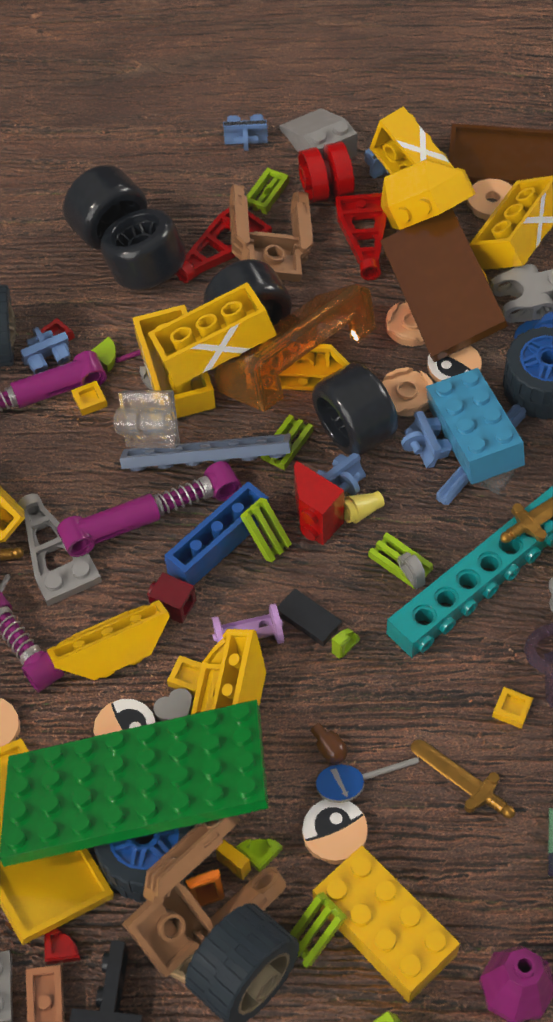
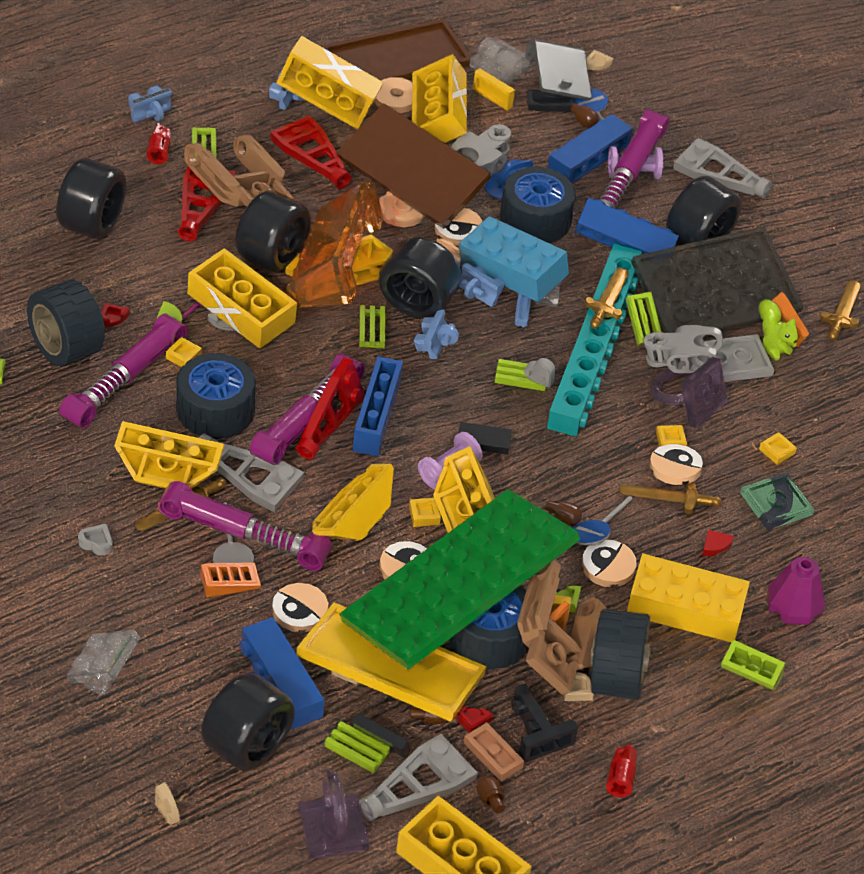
camera: 40 degrees left, 10 degrees down
(43, 346) = (115, 327): medium blue hips -> none
(72, 457) = (215, 395): none -> black wheel
(143, 249) = (148, 220): black wheel -> none
(147, 419) = (260, 342): clear plate -> none
(174, 594) = (370, 455): dark red brick -> none
(176, 705) = (432, 531): light grey tile -> none
(197, 452) = (328, 349): sand blue plate -> none
(203, 501) = (350, 392): none -> red plate
(212, 334) = (280, 255): yellow brick -> none
(223, 174) = (159, 144): none -> red hinge
(277, 545) = (412, 387): lime tile -> none
(318, 130) = (219, 89): light grey slope -> none
(318, 504) = (434, 354): red slope -> none
(321, 899) = (652, 596): lime tile -> none
(330, 171) = (253, 111): red wheel -> none
(344, 642) = (524, 444): lime tile -> none
(360, 506) = (464, 350): light yellow cone -> none
(423, 192) = (356, 101): yellow wedge -> none
(472, 865) = (716, 543): none -> red tile
(492, 743) = (676, 464): none -> tile

